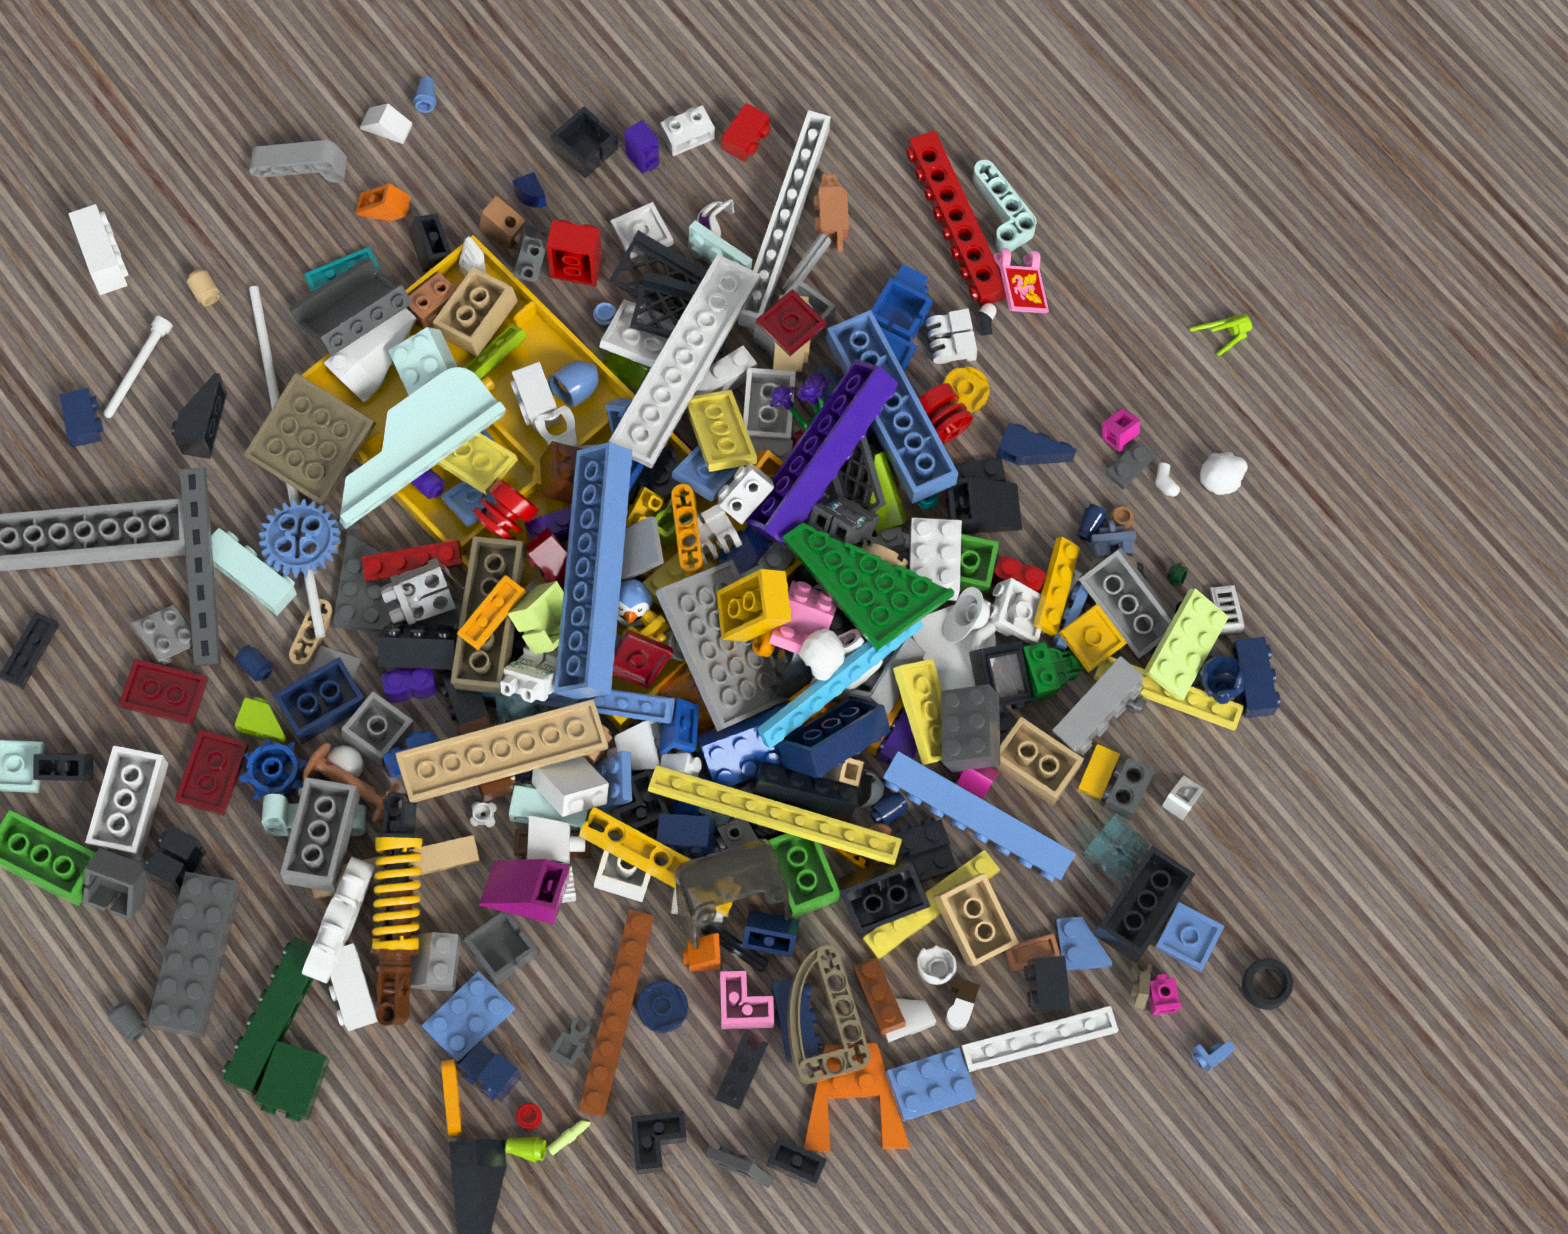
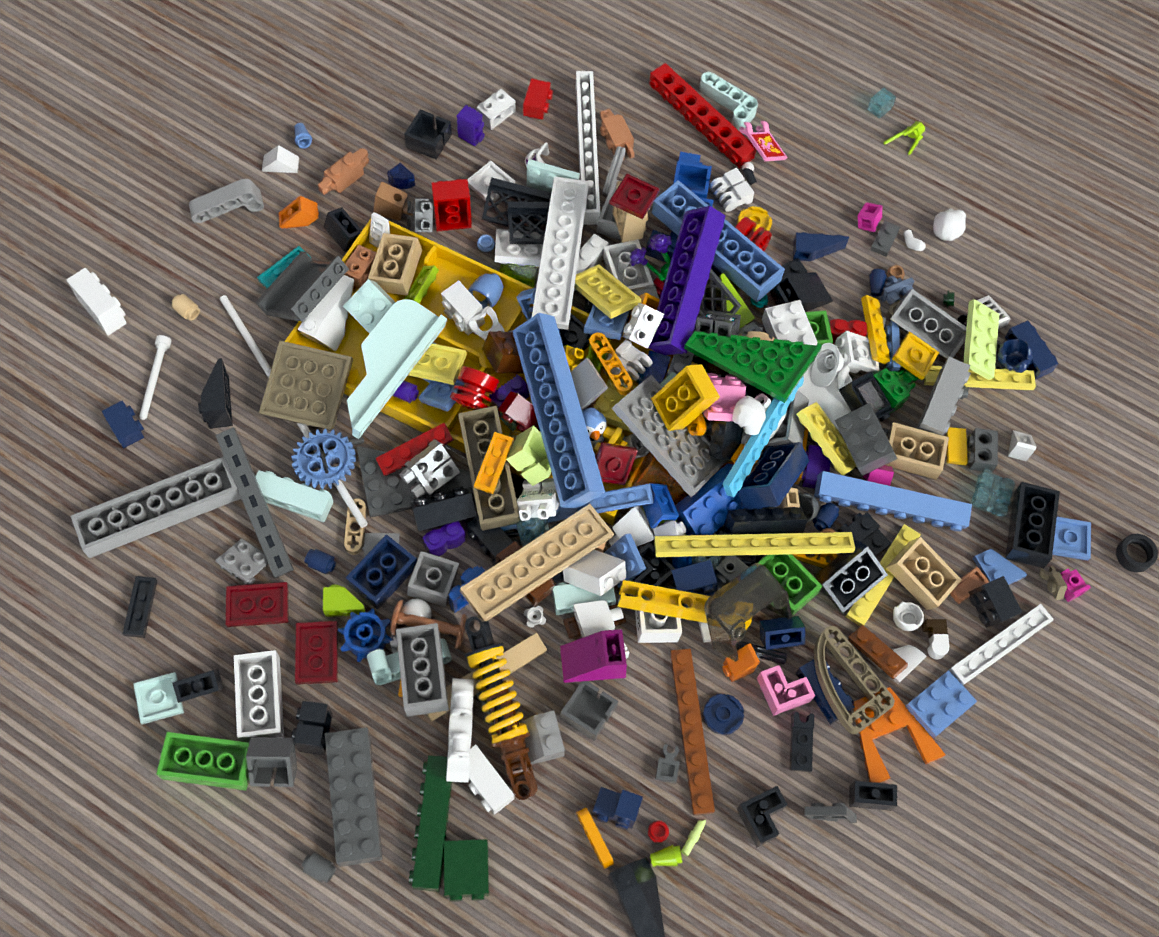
camera: 20 degrees left, 5 degrees down
(460, 163) = (344, 172): none -> nougat hinge
(468, 1017) = (582, 772): medium blue plate -> none
(1209, 272) = (881, 103): none -> clear light blue brick
(1217, 1054) = (1125, 616): medium blue bracket -> none

